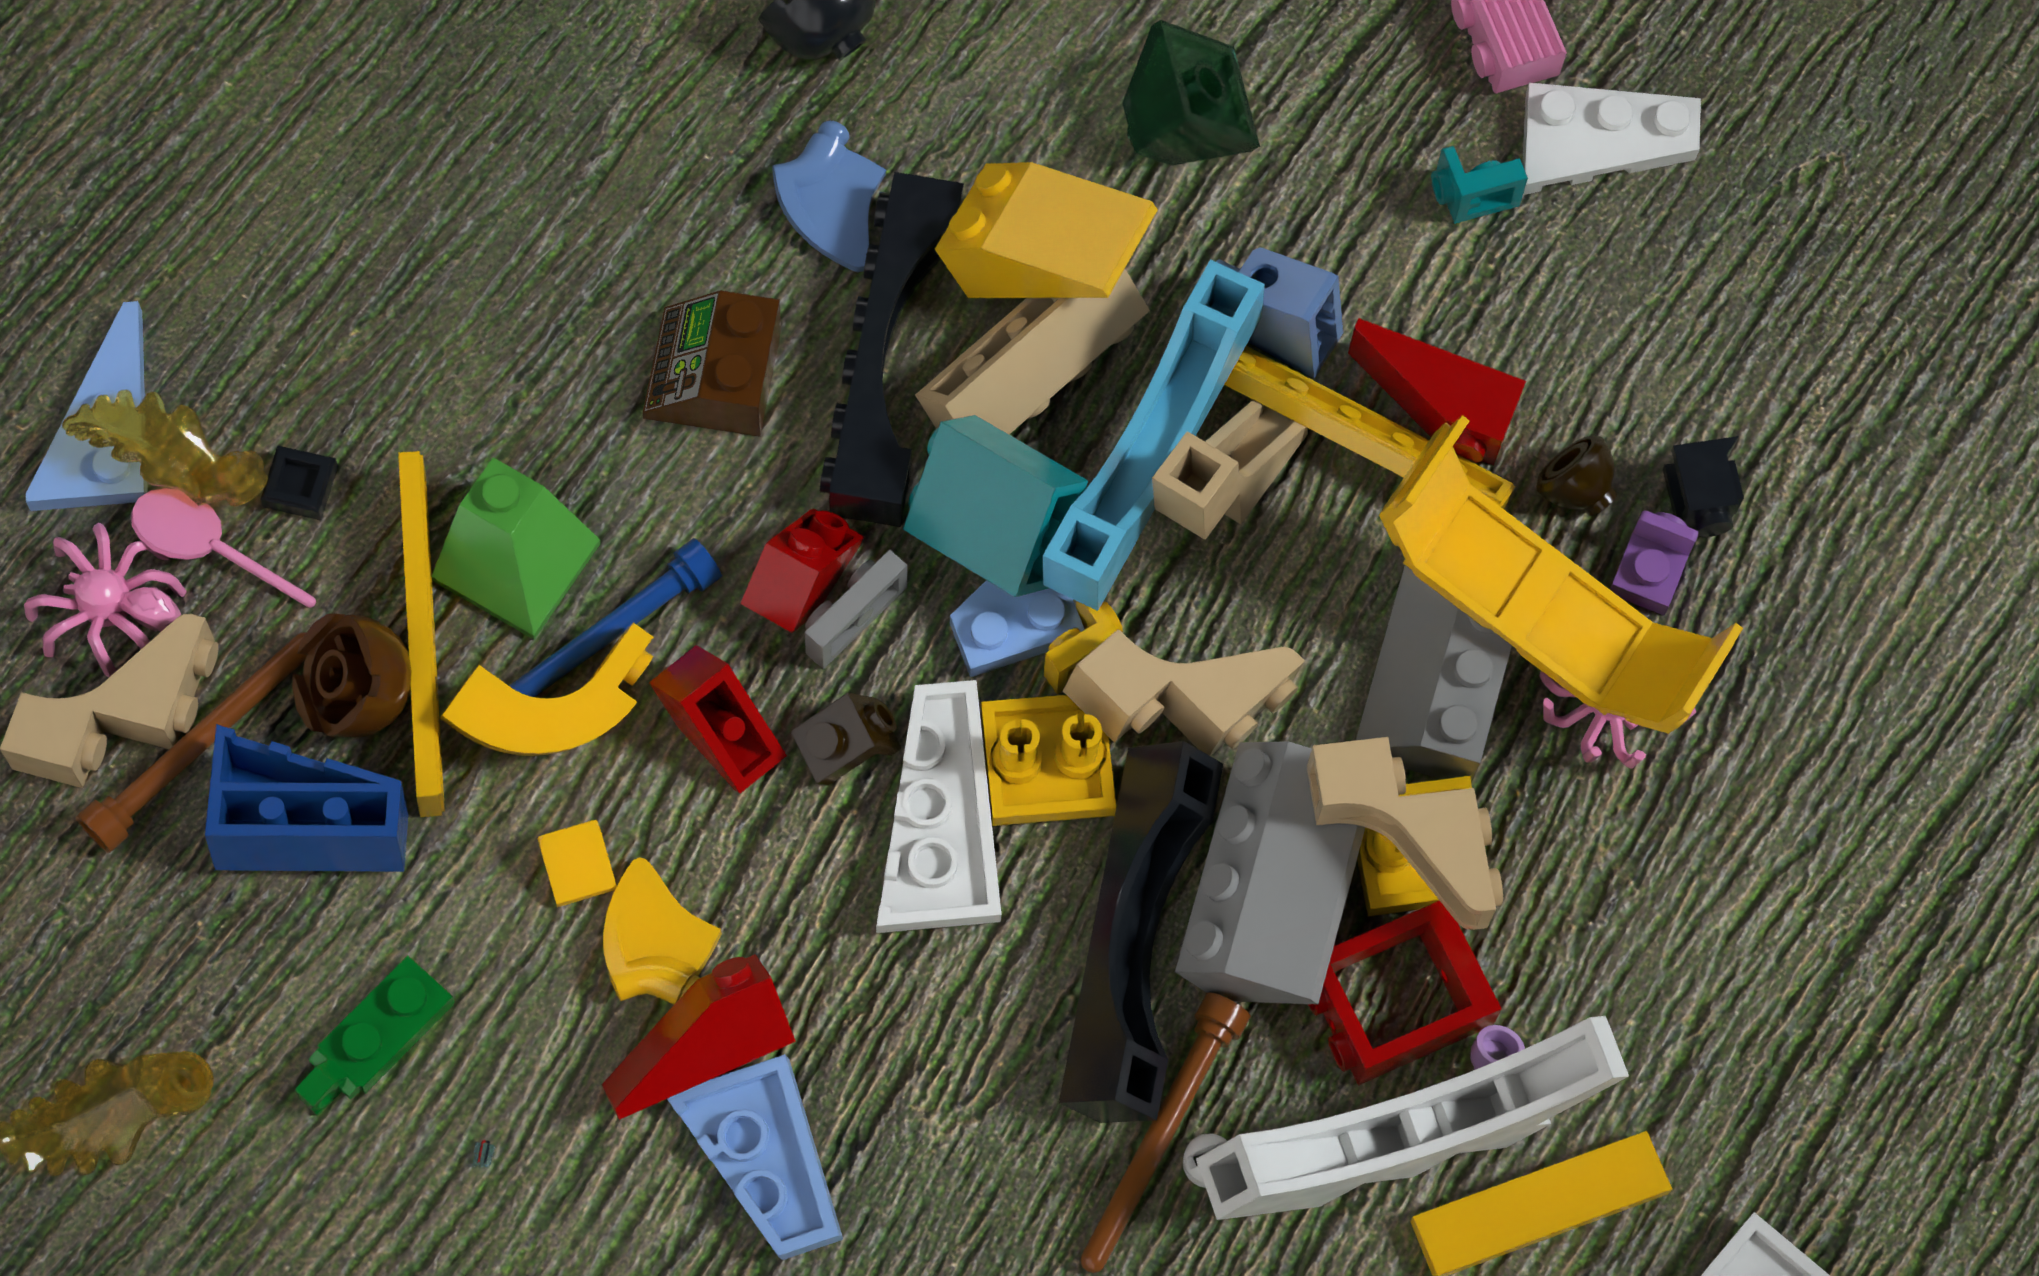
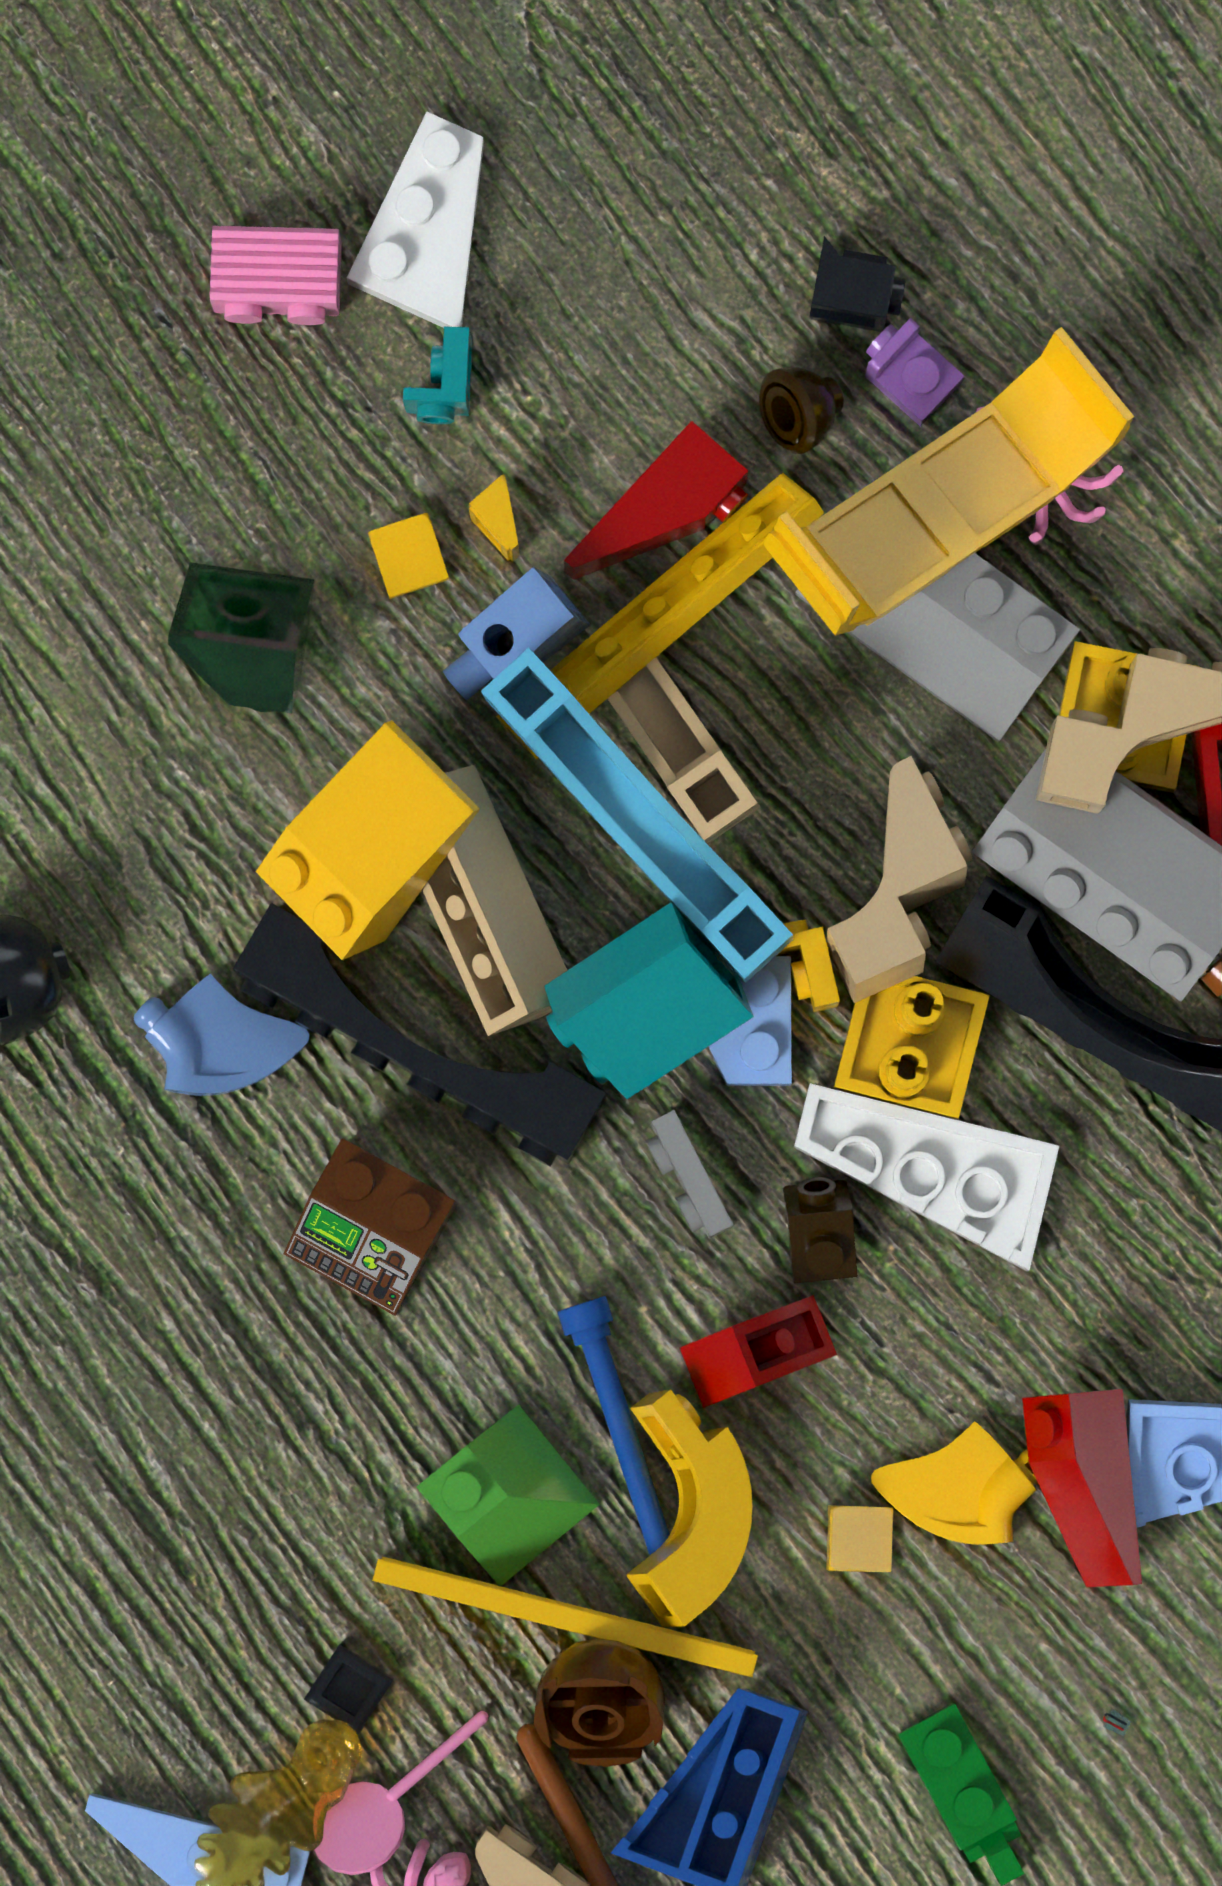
camera: 65 degrees left, 15 degrees up
(800, 568) = (629, 1213): red slope -> none
(1312, 208) = (408, 555): none -> yellow slope
(1376, 264) = (494, 517): none -> yellow slope

